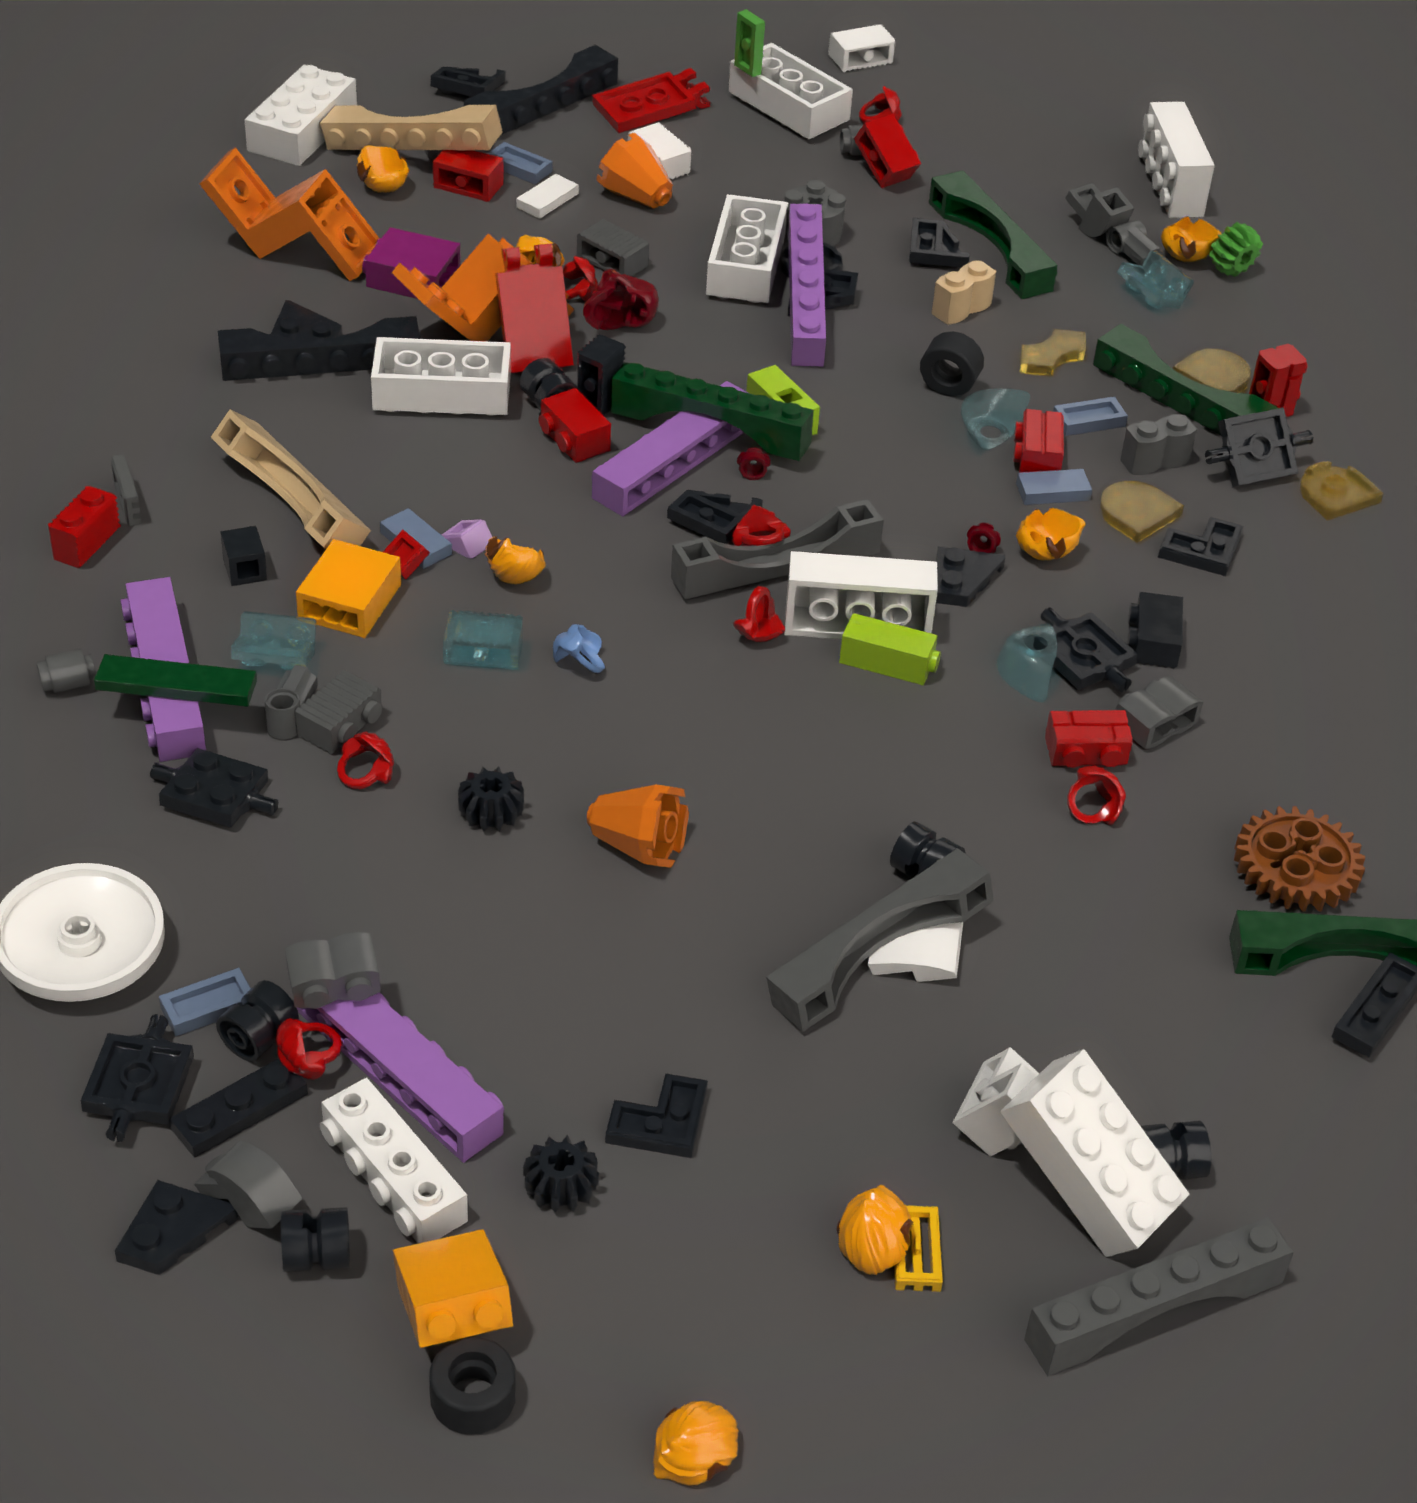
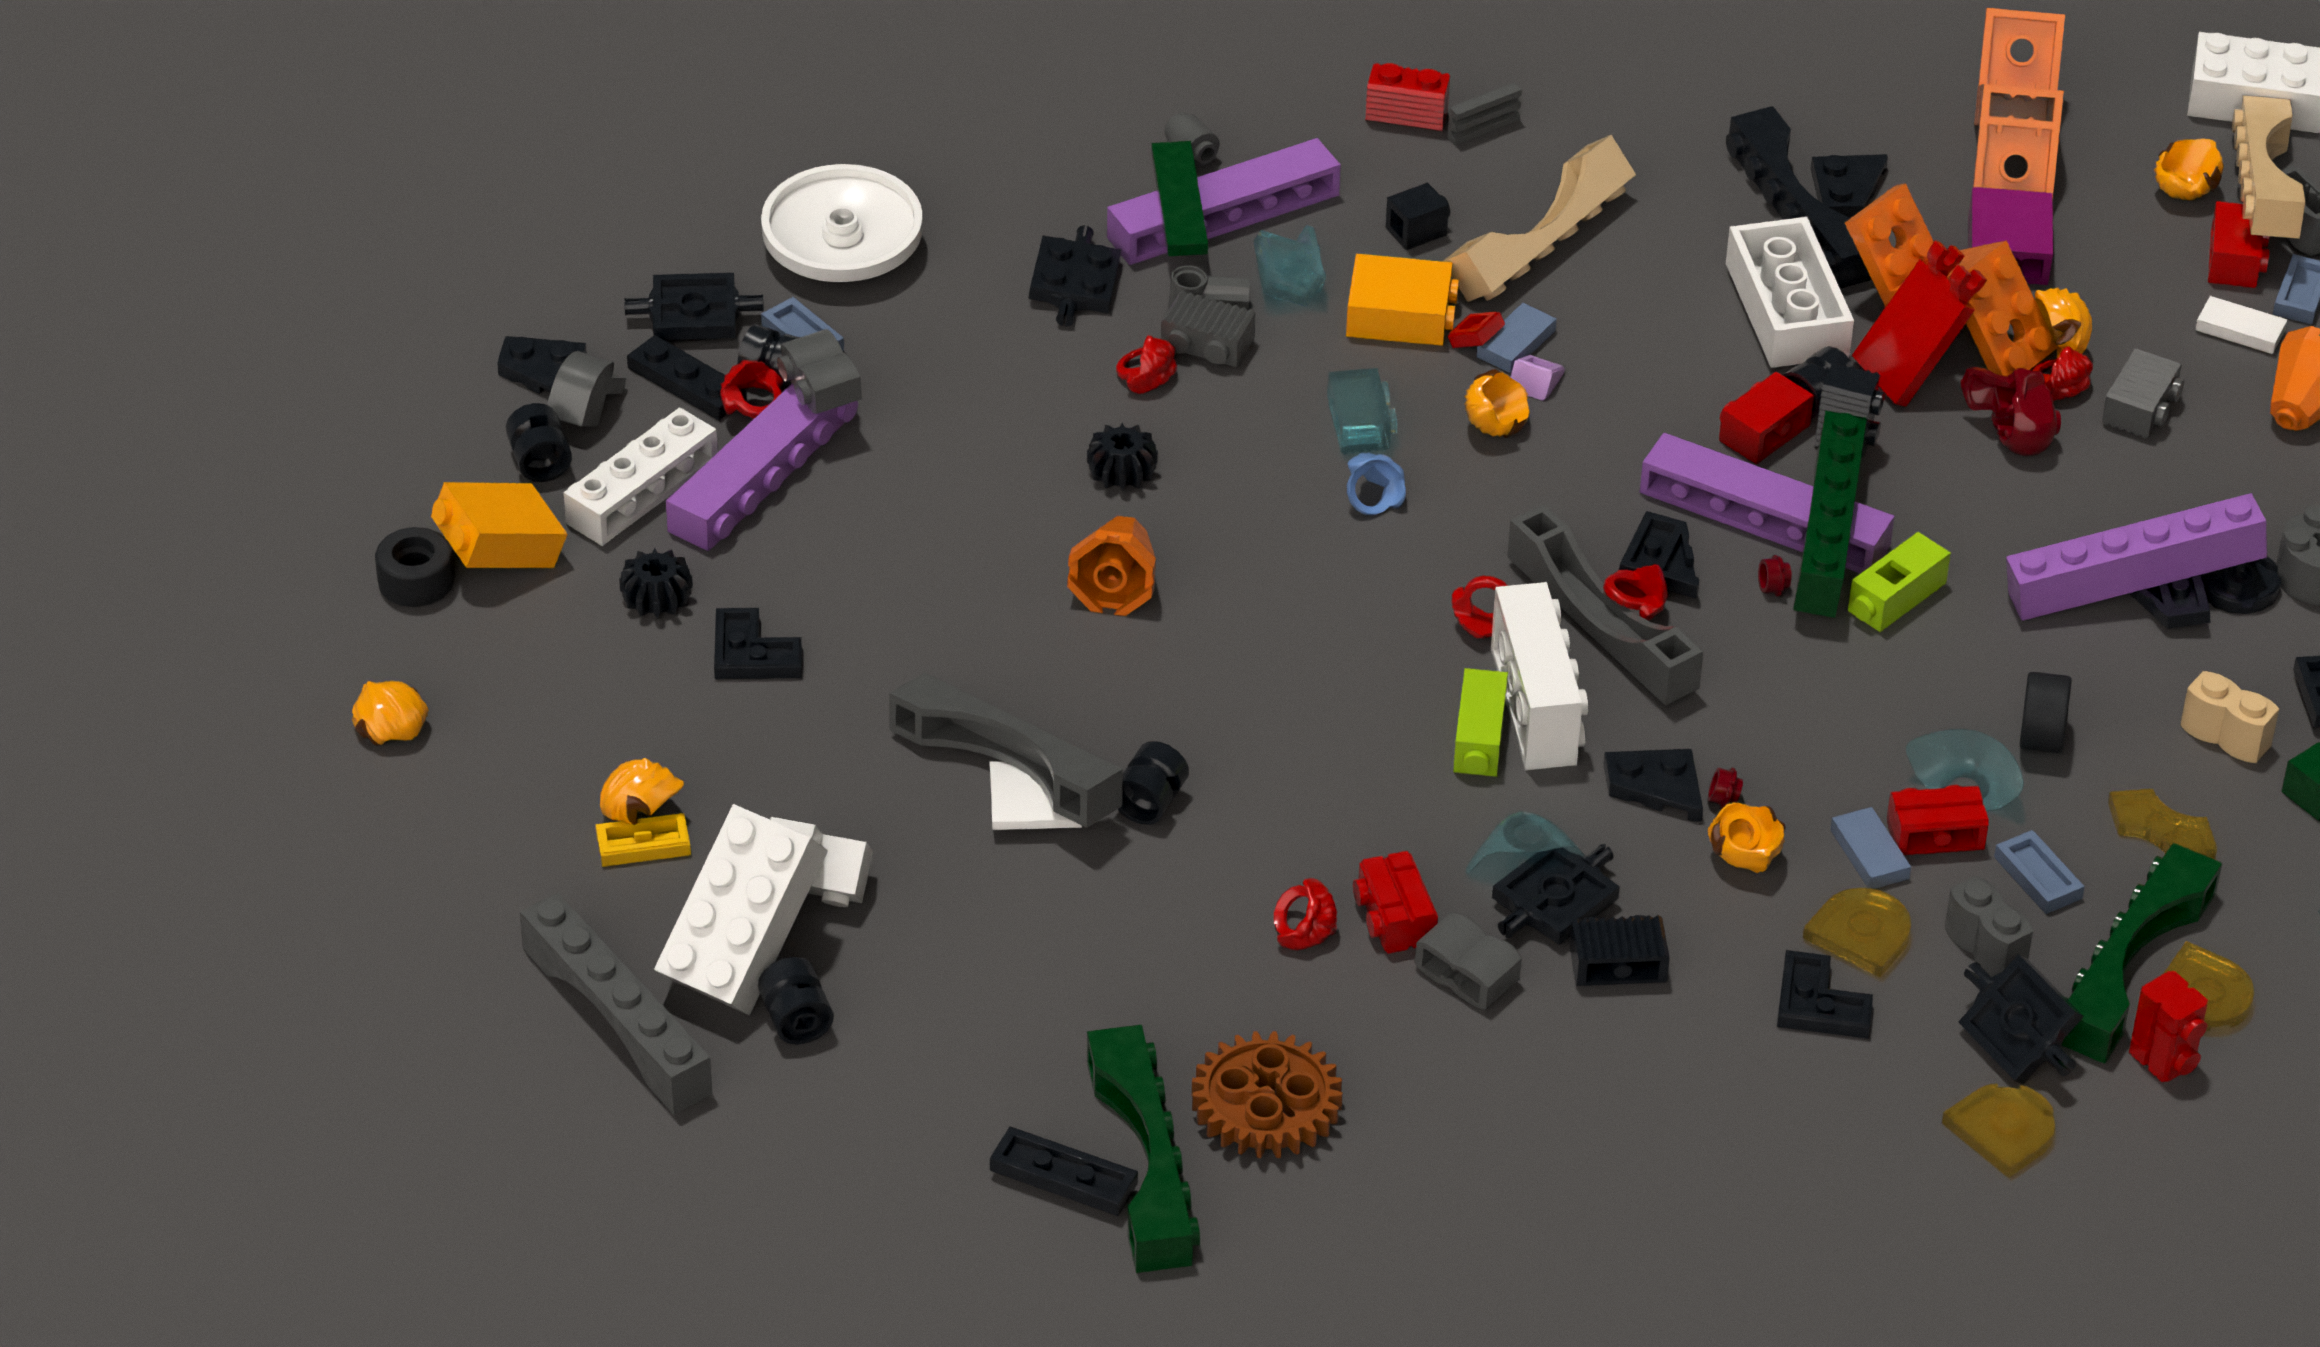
camera: 80 degrees right, 0 degrees up
(747, 248) = (2169, 484): white brick -> none

